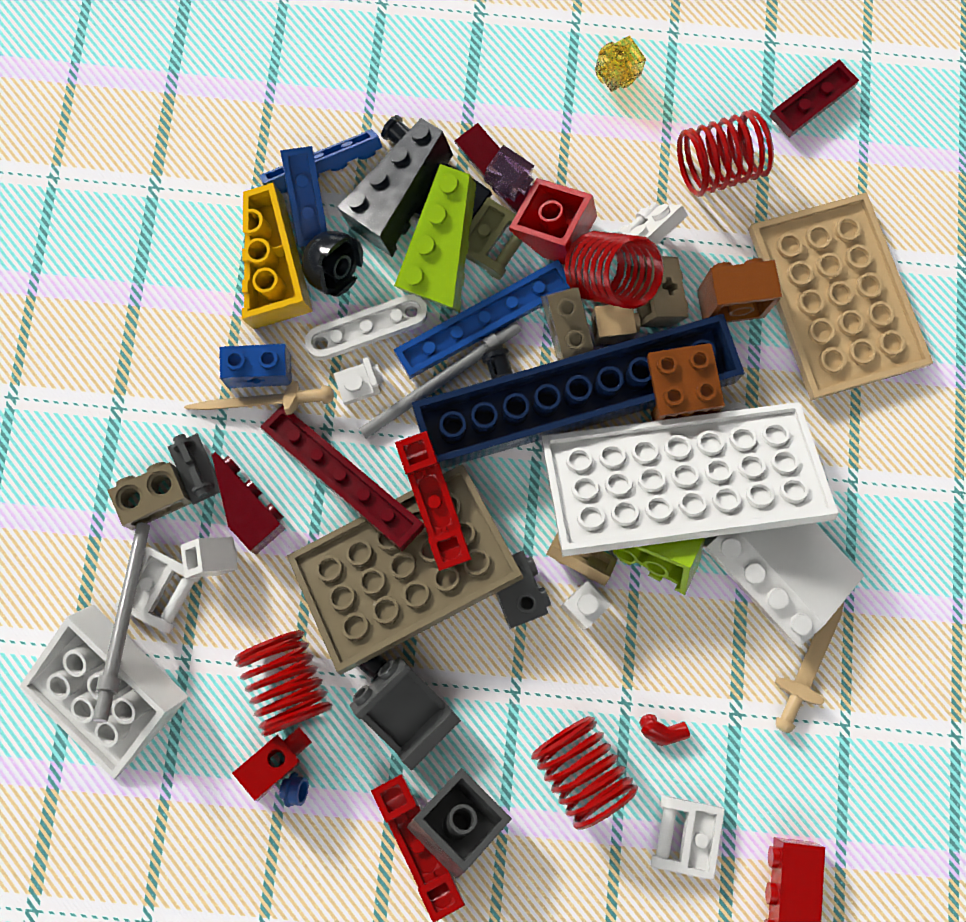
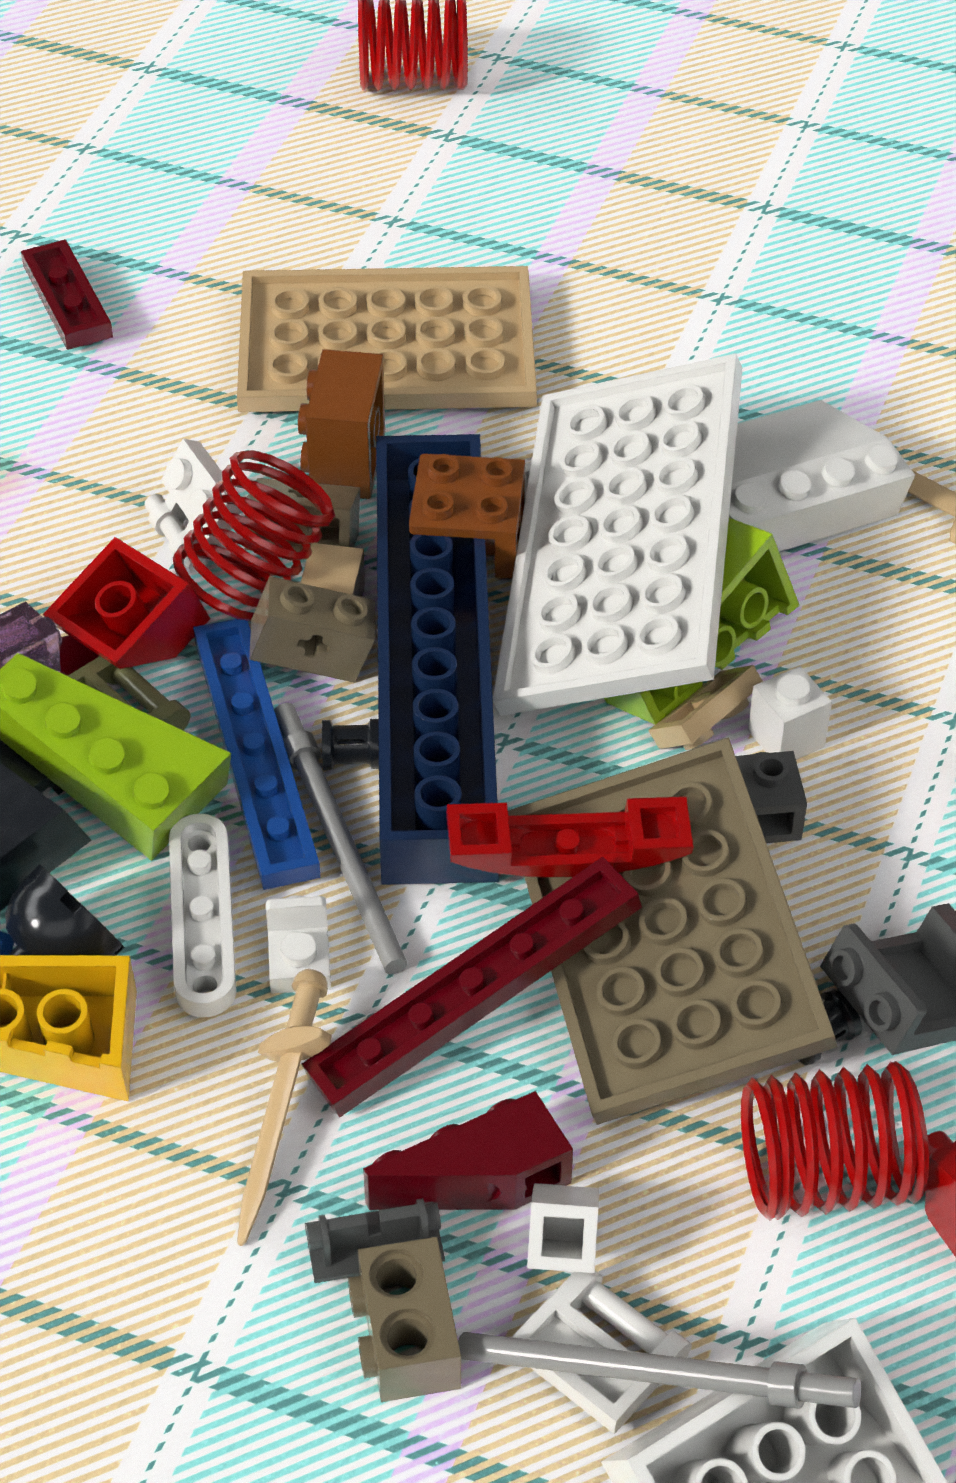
camera: 70 degrees left, 30 degrees down
(255, 365) = (212, 1088): blue brick -> none
(715, 151) = (155, 397): red piece -> none

